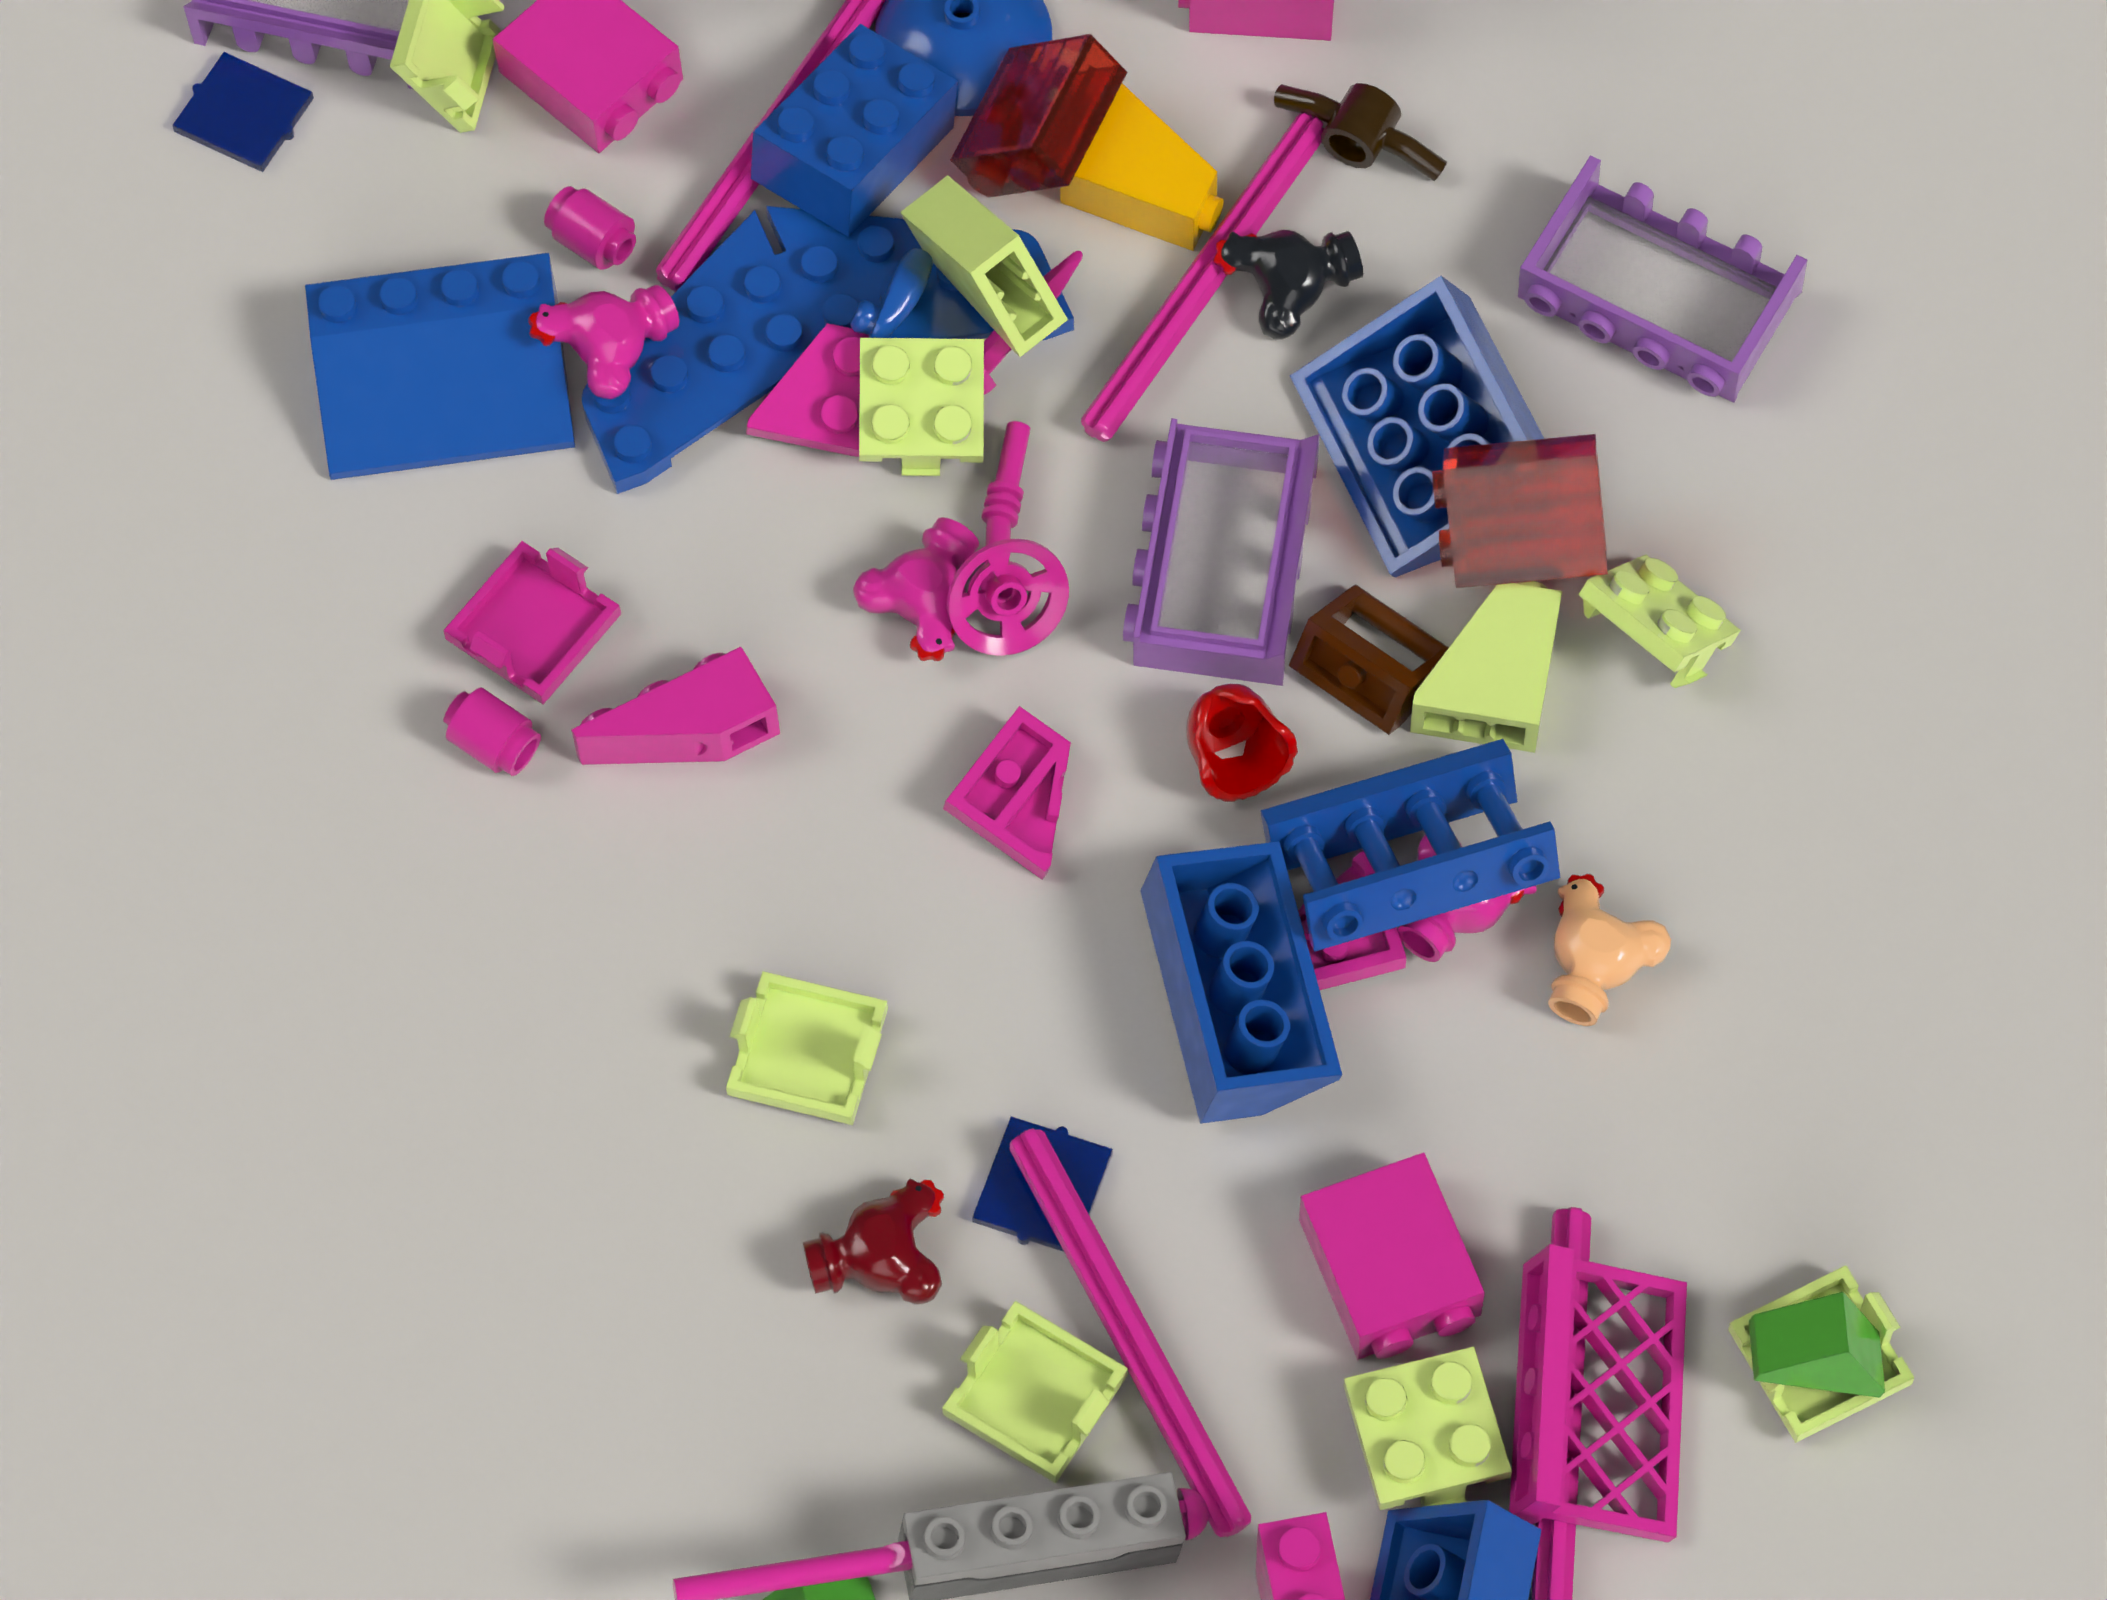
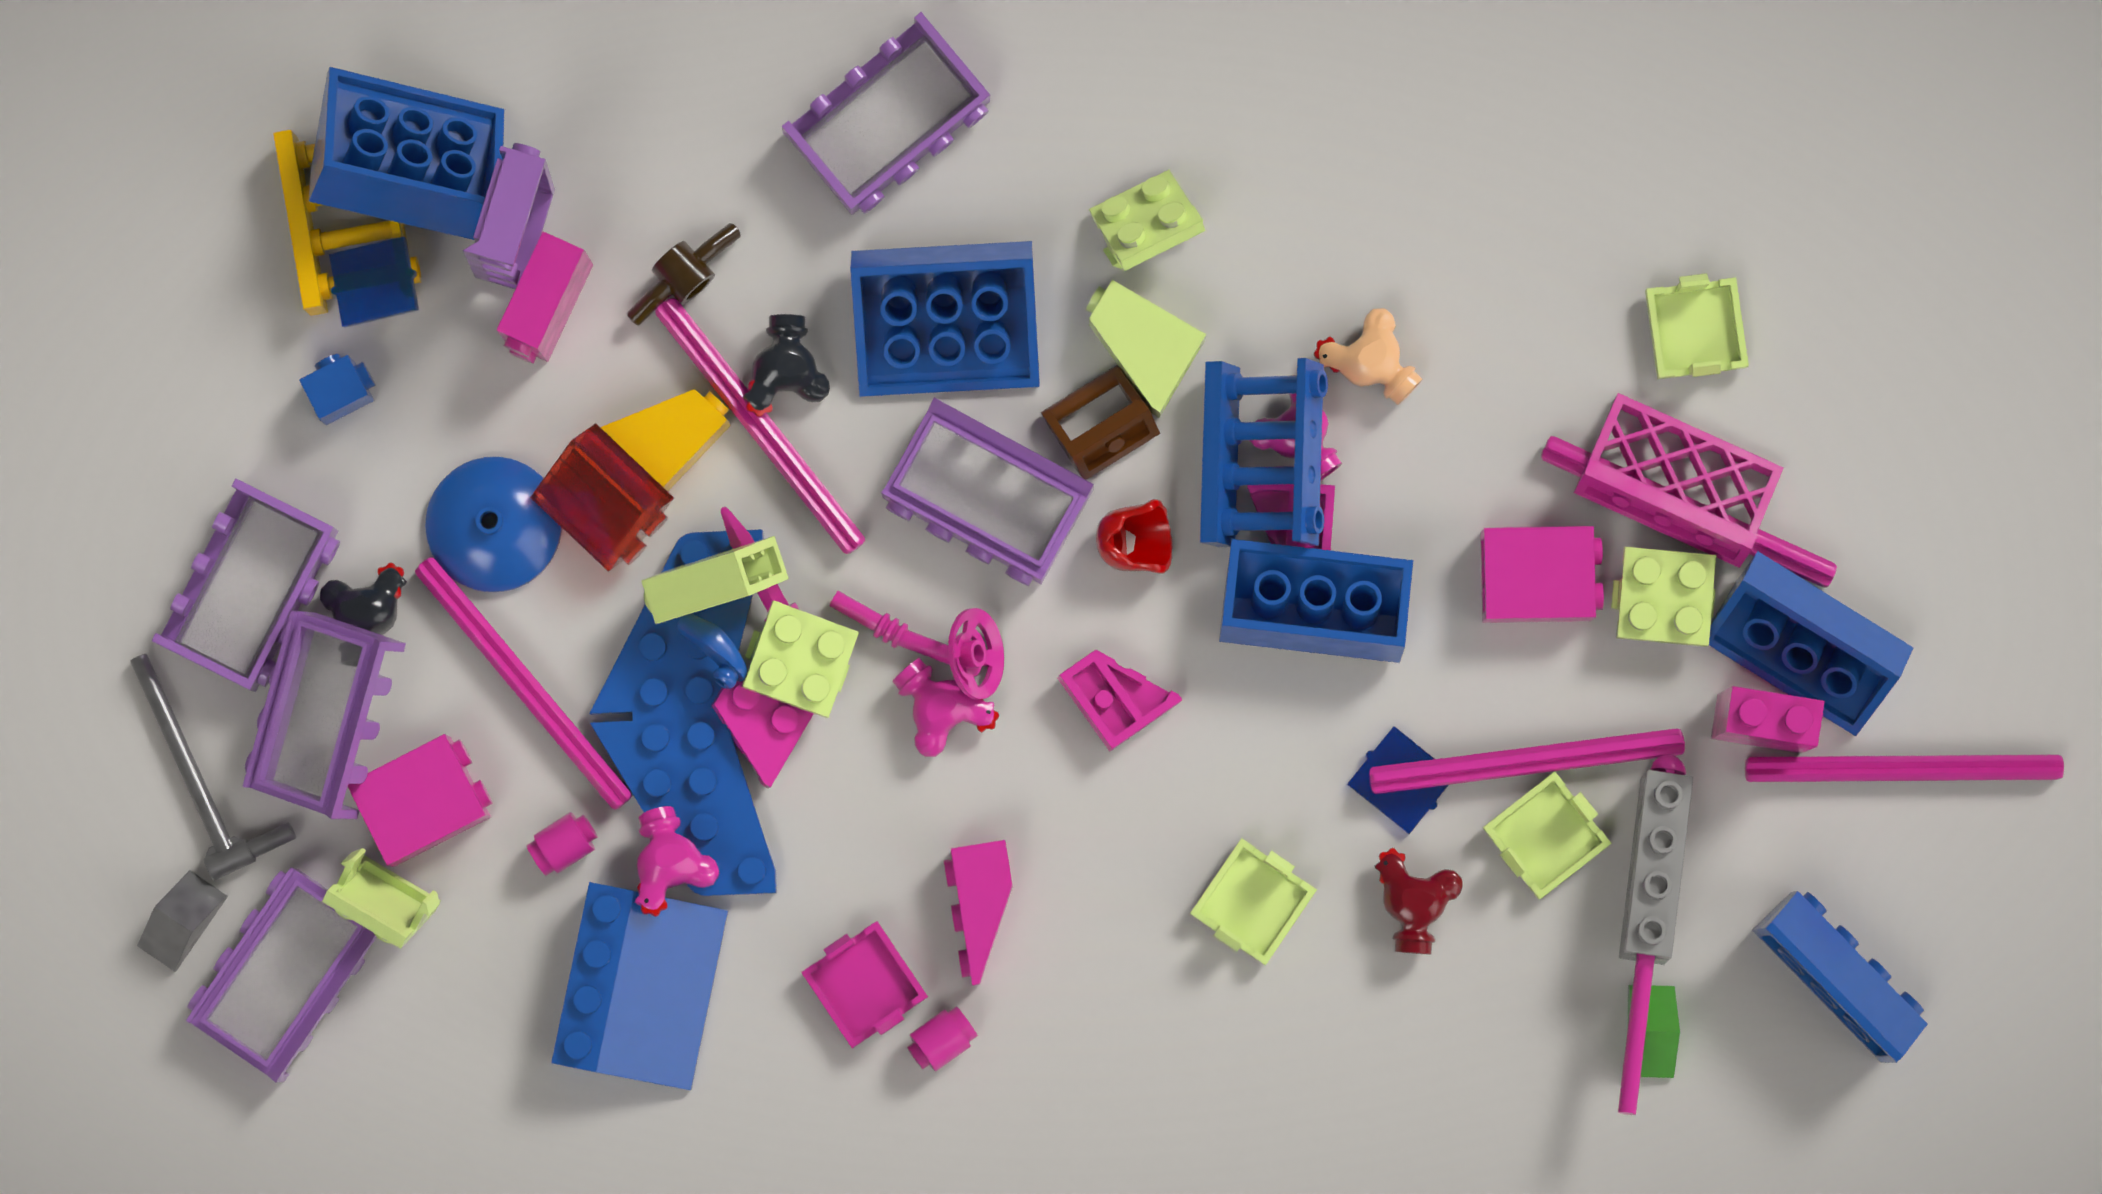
camera: 70 degrees left, 20 degrees up
(243, 111) = (359, 1063): clear blue piece -> none
(853, 130) = (559, 631): blue brick -> none
(1522, 511) = (1054, 284): clear red brick -> none
(1818, 1346) = (1708, 333): bright green slope -> none

